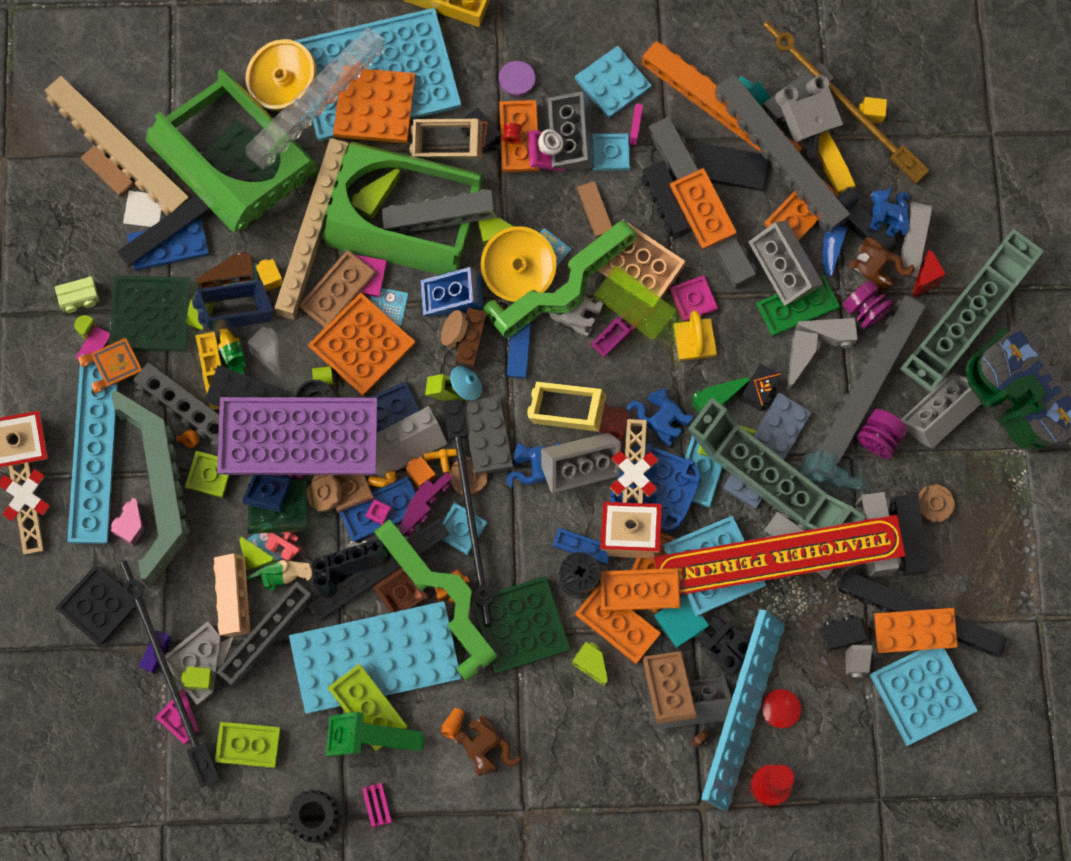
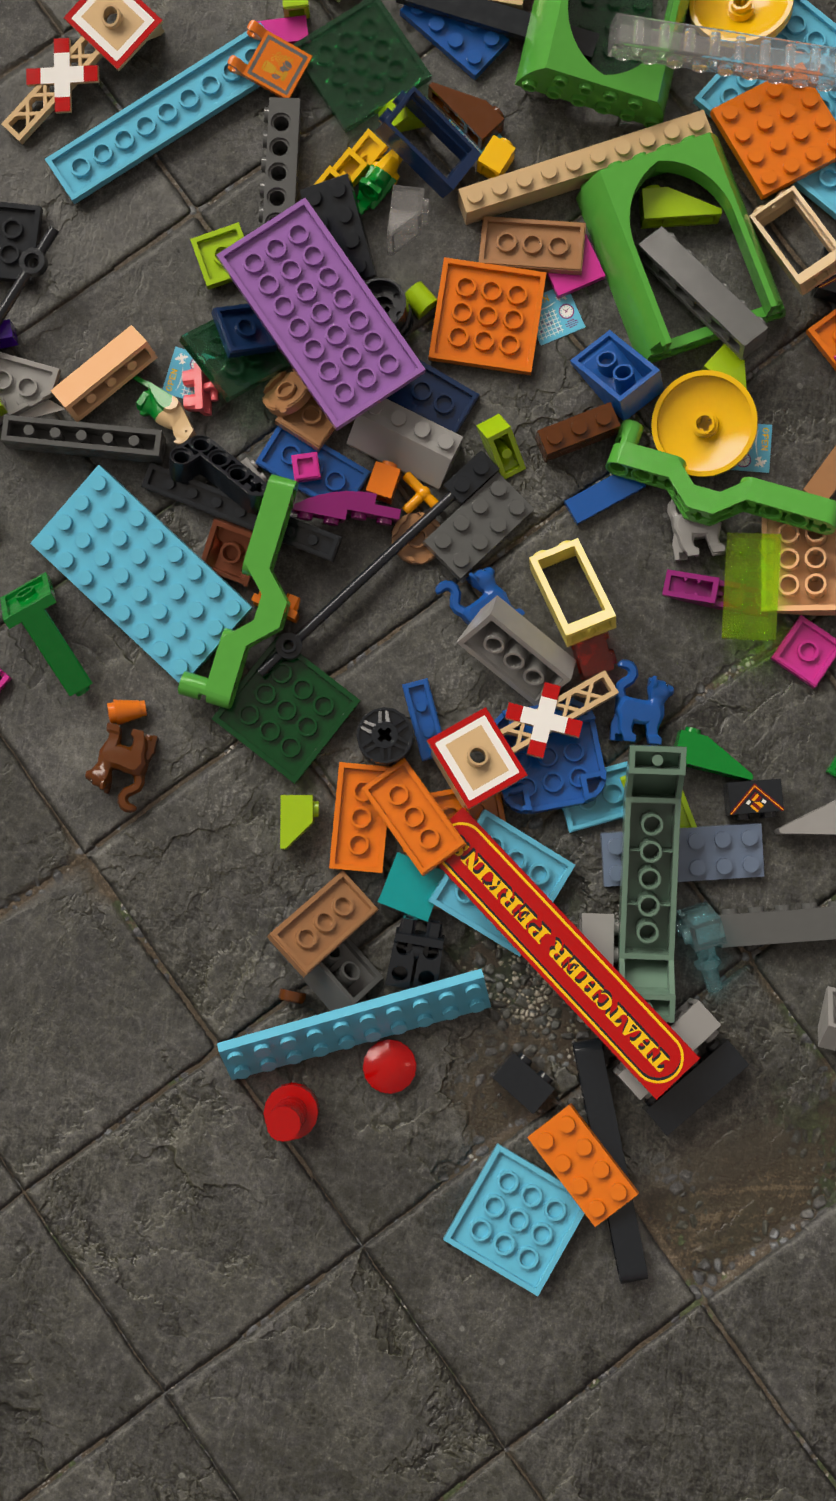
camera: 60 degrees right, 10 degrees up
(130, 523) = (111, 210): bright pink slope -> none
(164, 486) = (170, 215): sand green slope -> none
(189, 438) = (248, 206): orange piece -> none
(255, 556) = (166, 367): lime slope -> none
(359, 693) = (82, 599): lime plate -> none
(384, 481) = (345, 449): light orange arm -> none
(454, 328) = (575, 404): medium nougat tile -> none
(457, 526) = (347, 566): medium azure tile -> none
(466, 383) = (514, 461): medium azure dish -> none
(694, 338) = (759, 684): yellow tile -> none
(858, 660) = (501, 1120): light grey slope -> none
(882, 433) = (790, 977): magenta wheel -> none
(936, 503) = (755, 1092): medium nougat tile -> none

